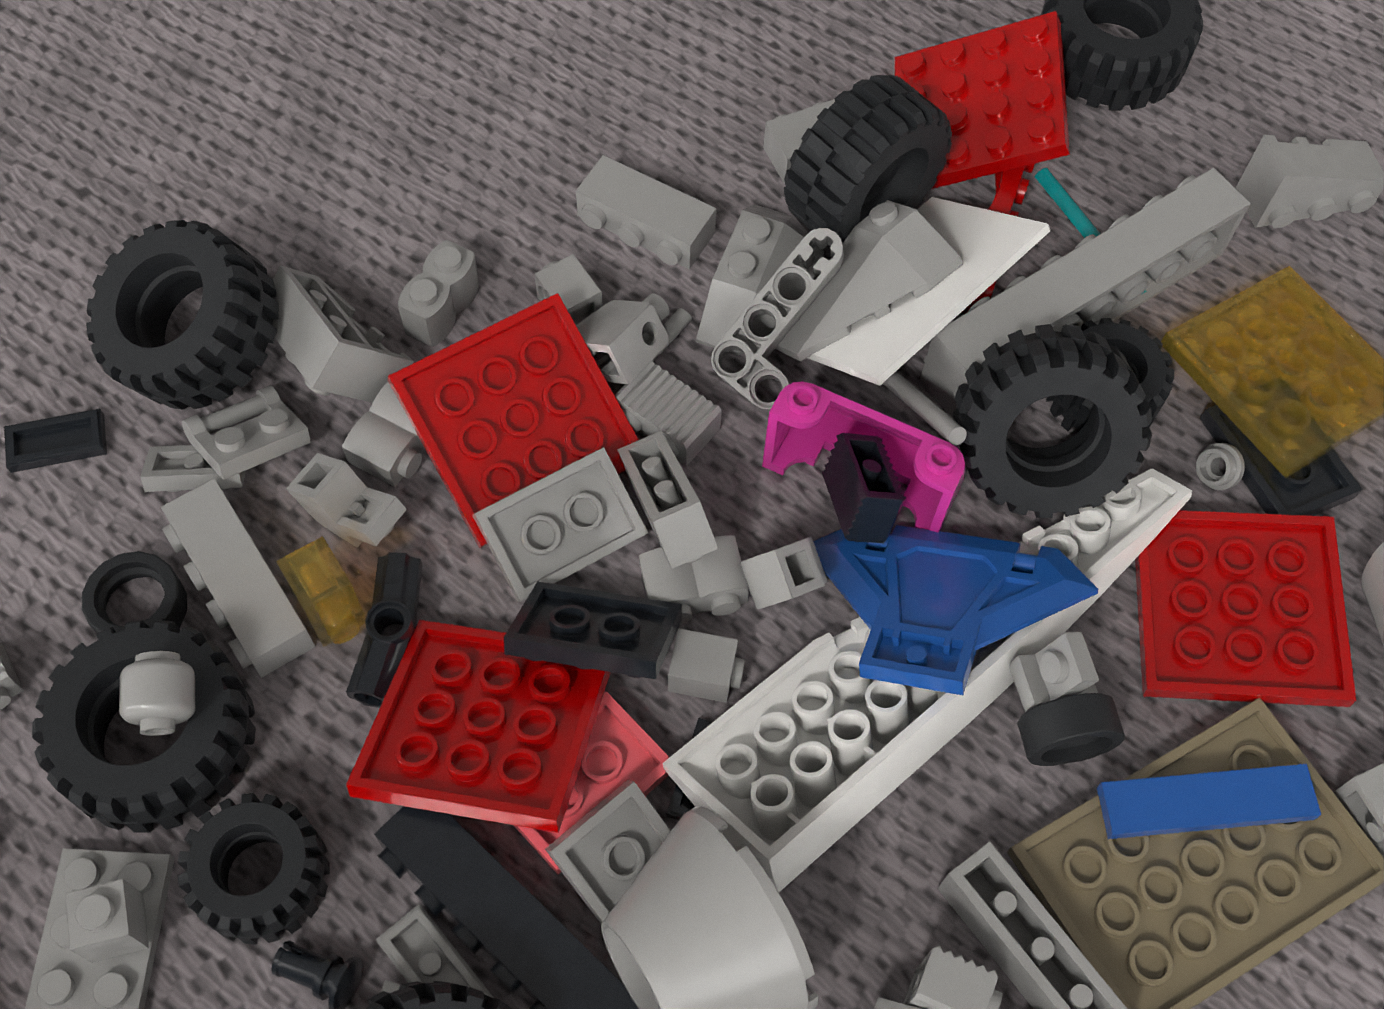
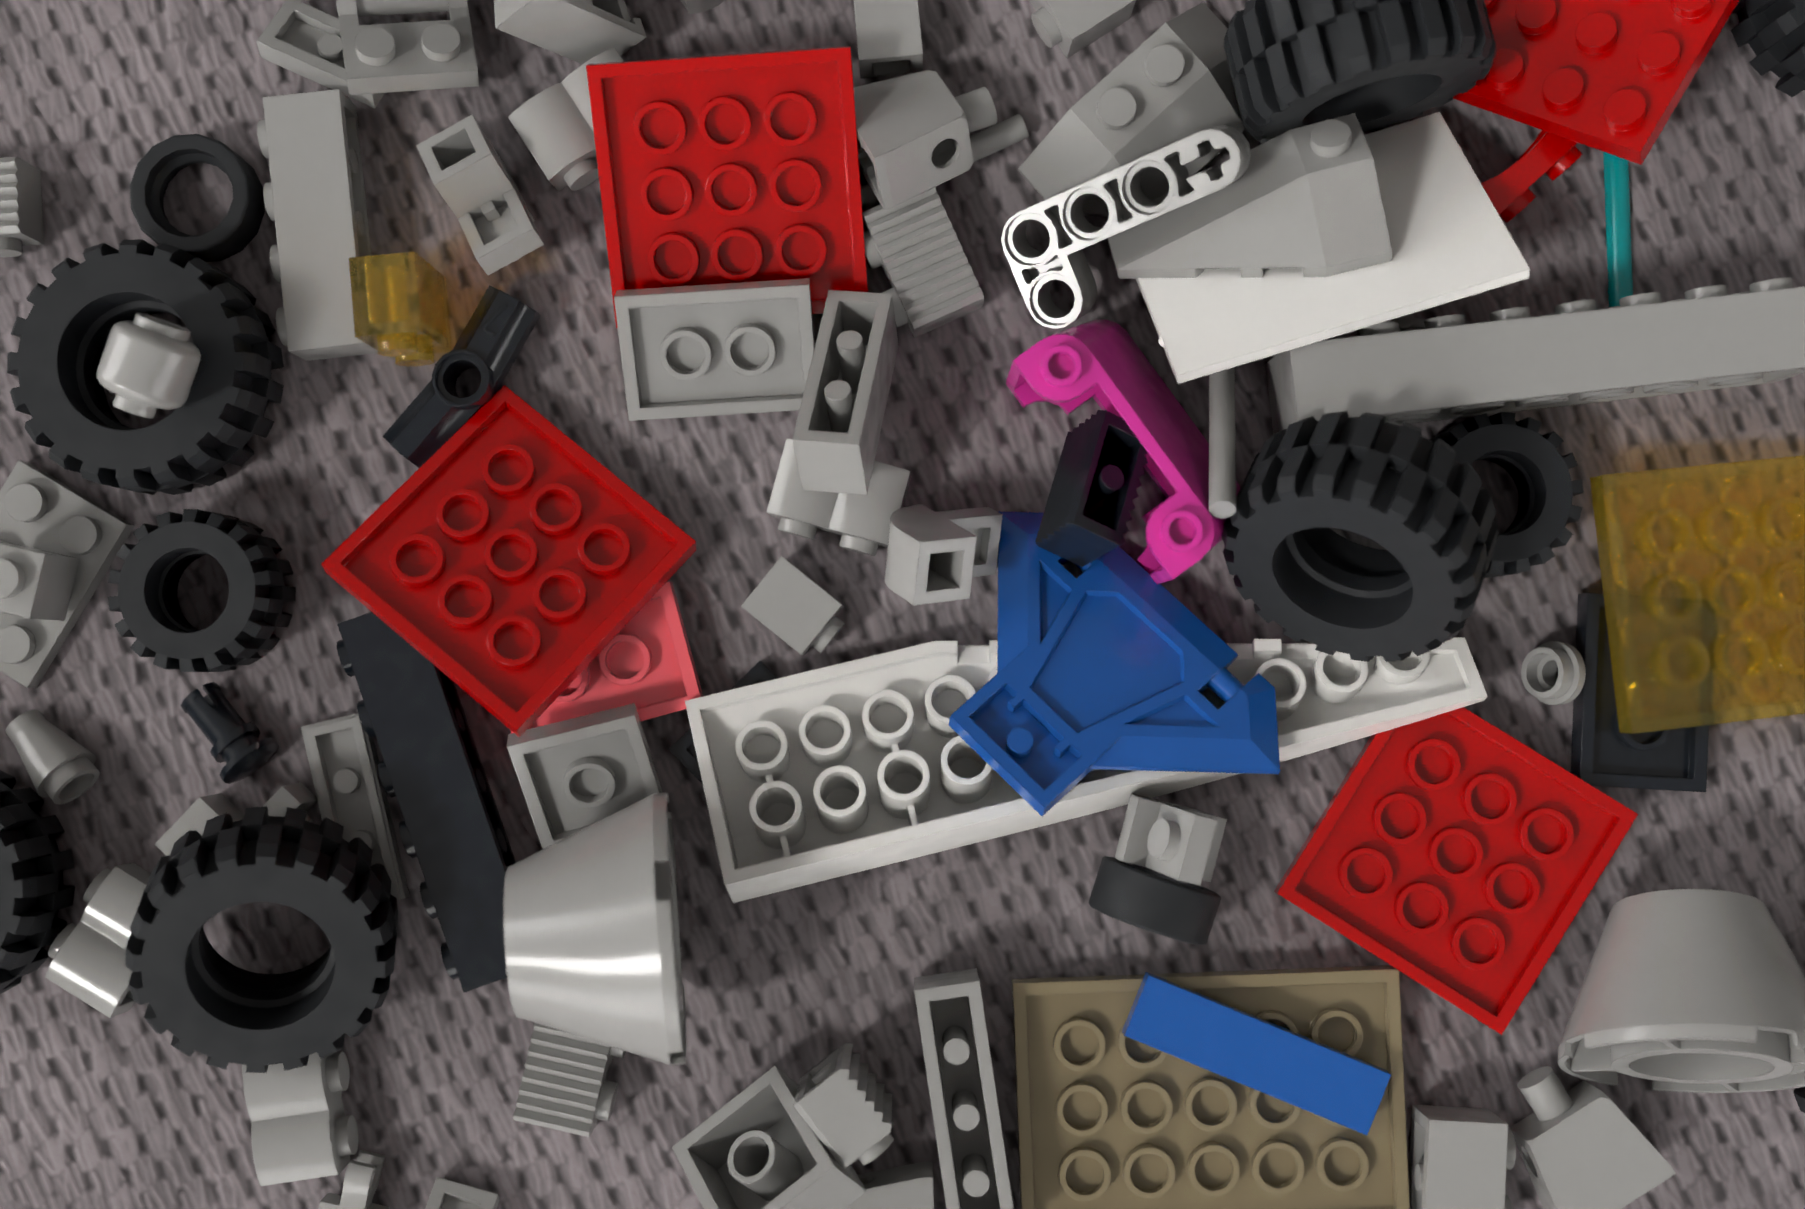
camera: 35 degrees right, 25 degrees up
(594, 630) = (681, 513): black plate -> none

